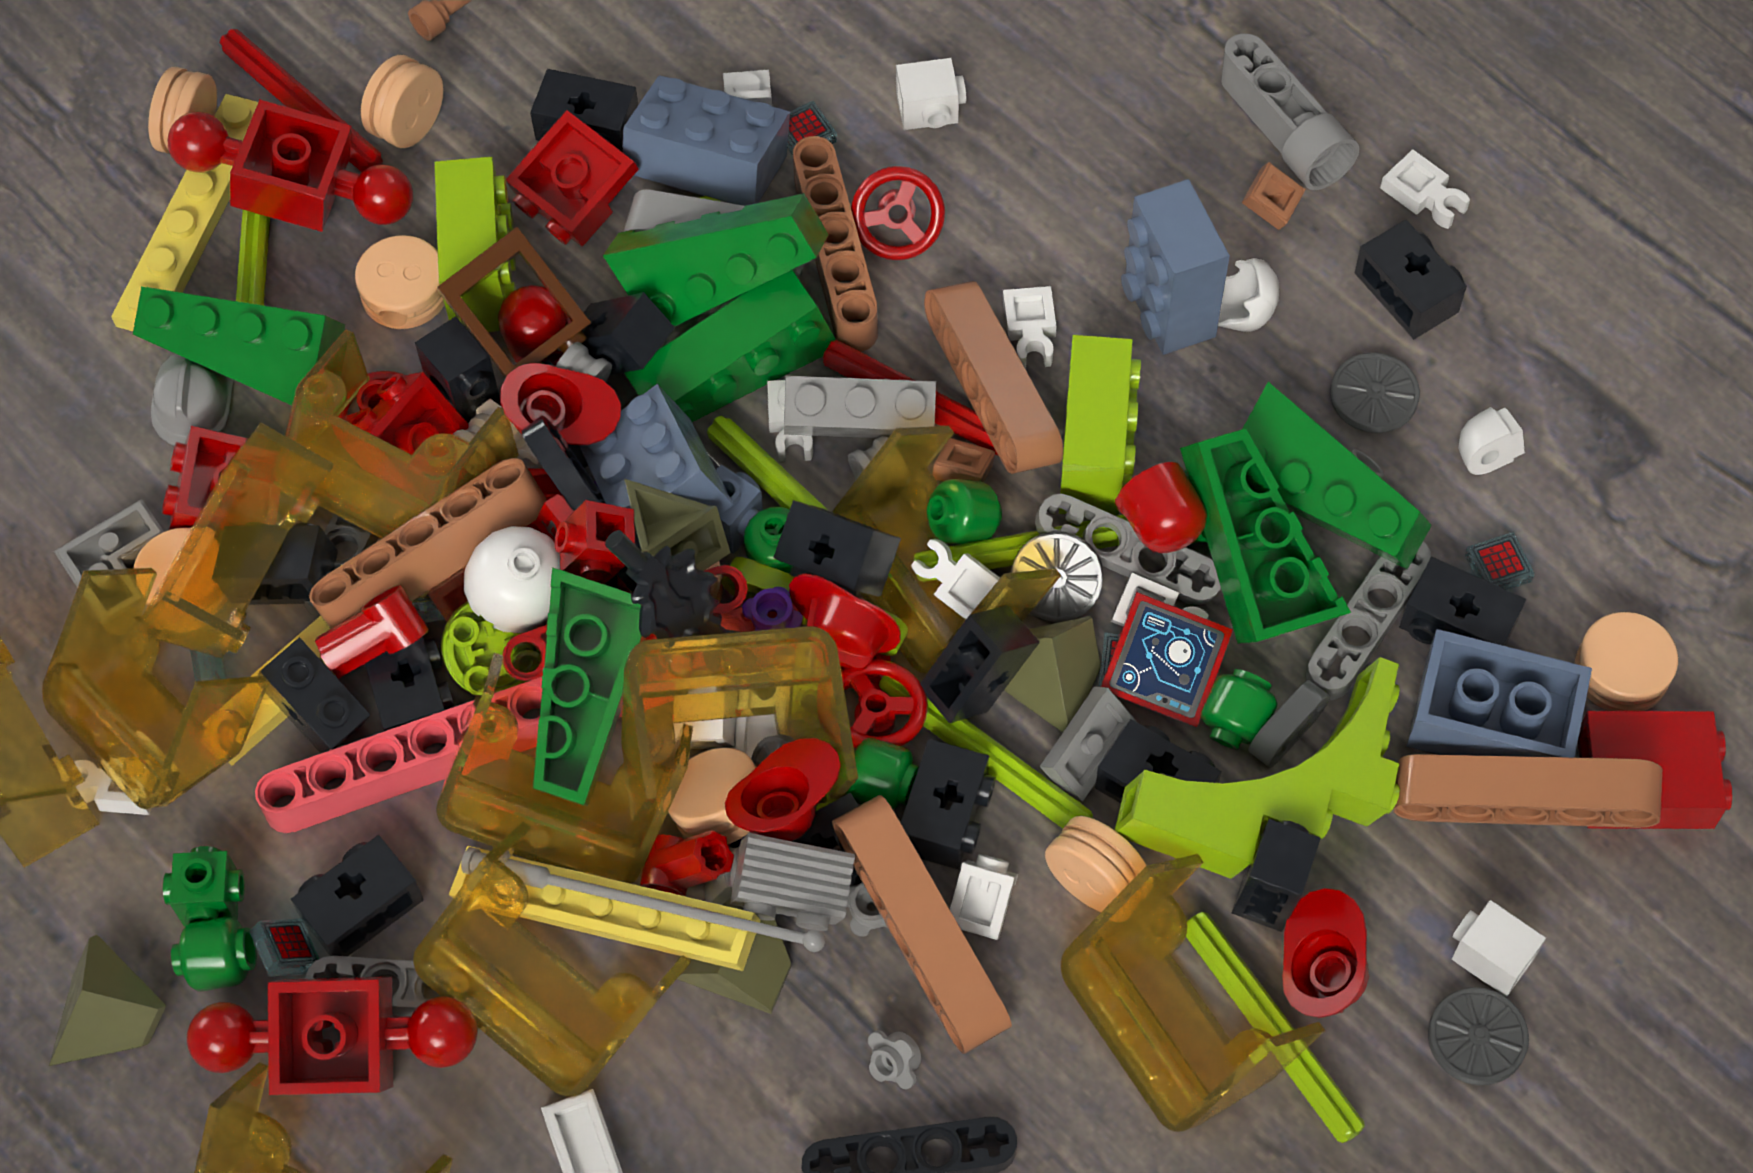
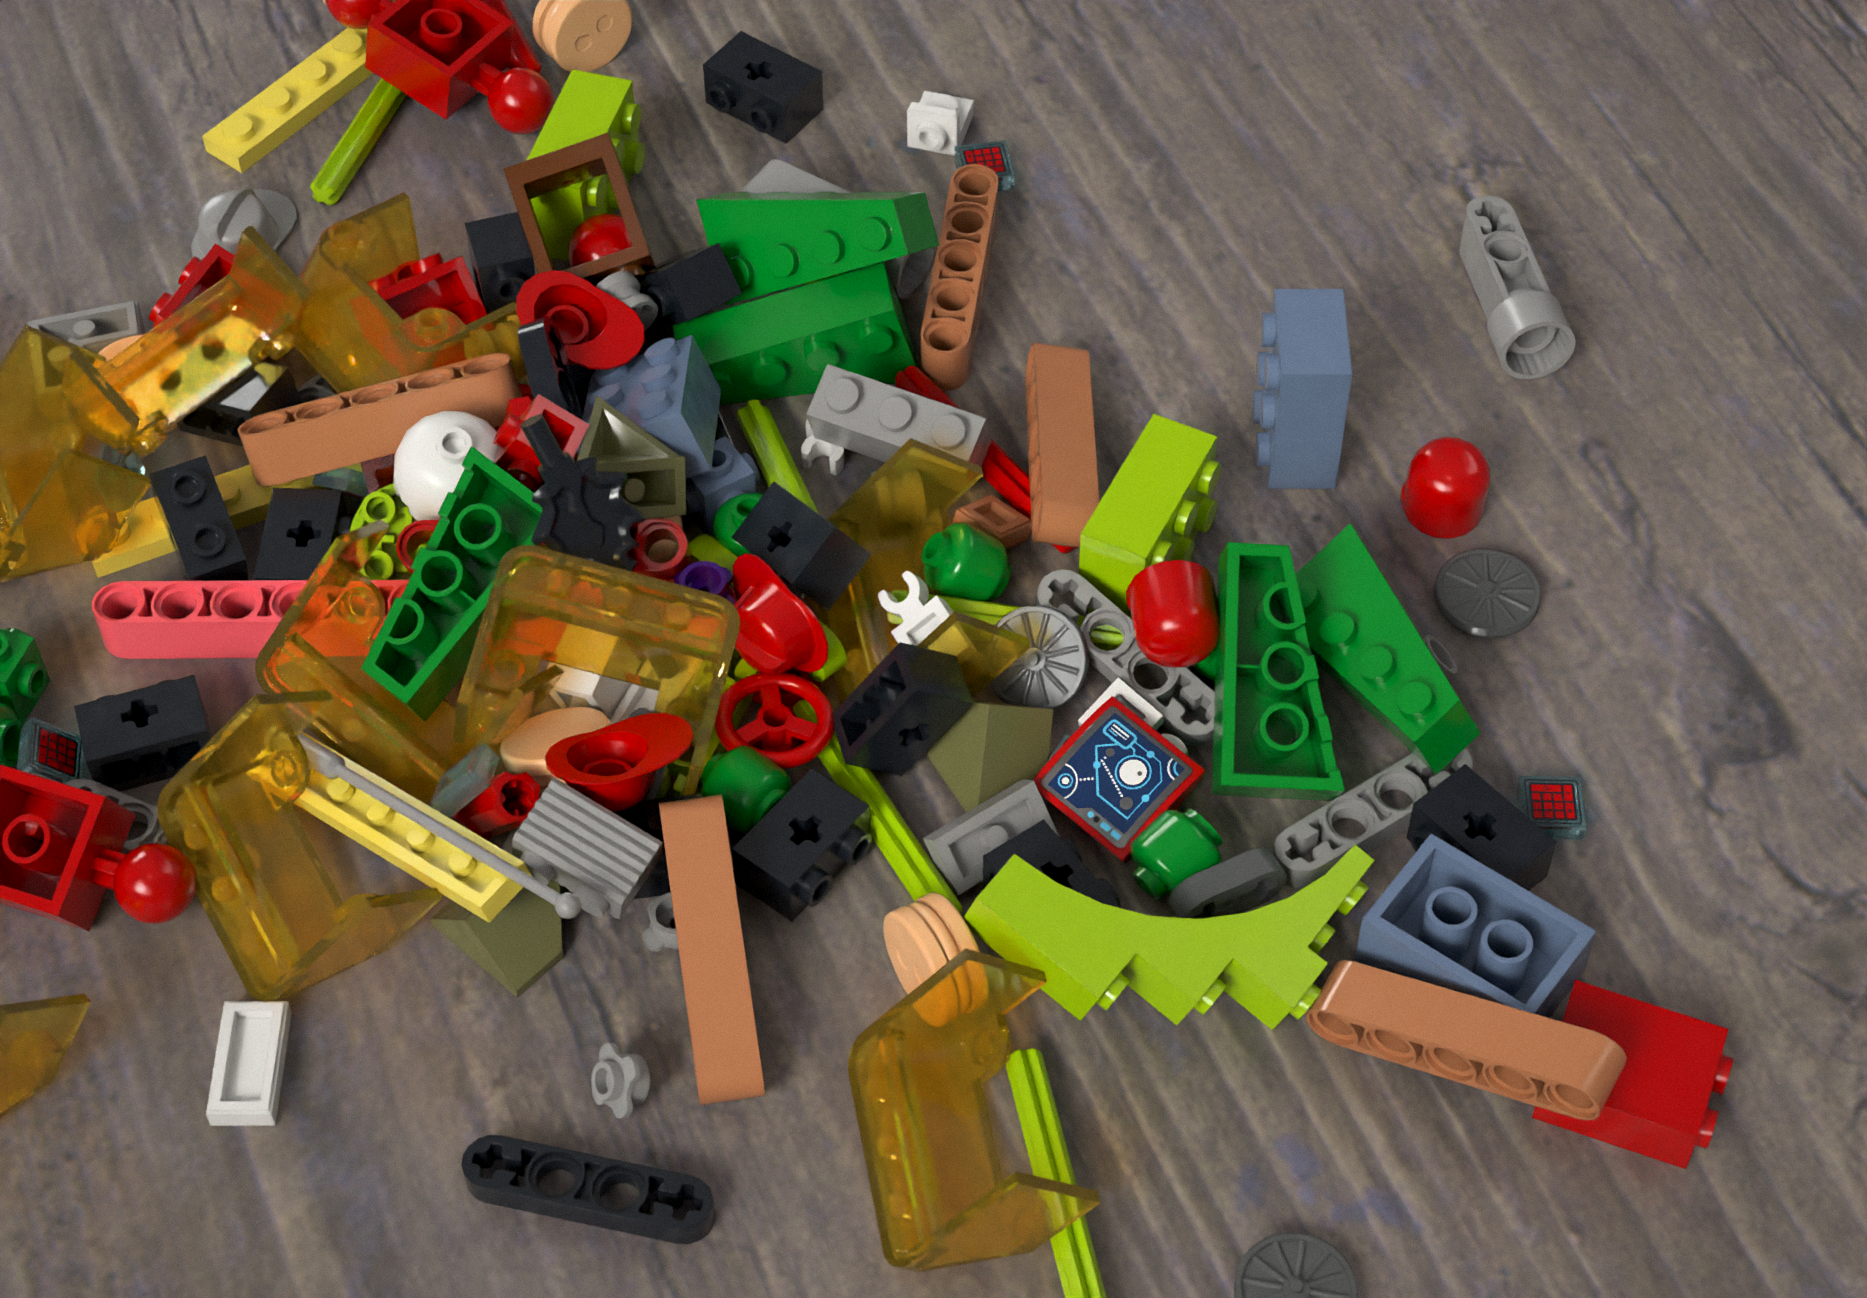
camera: 20 degrees right, 10 degrees down
(240, 340) = (297, 175): green wedge -> none
(384, 625) = (296, 475): red piece -> none
(399, 282) = (480, 181): light nougat head -> none
(571, 179) = (713, 137): red plate -> none
(660, 853) = (465, 781): none -> clear light blue tile
(706, 141) = (867, 136): sand blue brick -> none
(902, 196) = (1054, 300): red piece -> none
(929, 93) = (1129, 166): white brick -> none
(983, 895) = (797, 950): white bracket -> none
(1031, 321) = (1130, 406): white plate -> none
(1249, 296) = (1382, 456): white hair -> none
(1273, 196) = (1461, 366): nougat tile -> none
(1277, 874) = (1128, 1029): black brick -> none
(1310, 313) = (1446, 488): none -> red helmet
(1325, 954) = (1148, 1136): red piece -> none
(1410, 278) = (1578, 489): black brick -> none
(1422, 184) = (1635, 401): white plate -> none
(1490, 441) = (1595, 678): white piece -> none
(1496, 947) = (1356, 1197): white brick -> none
(1629, 661) = (1653, 950): light nougat head -> none

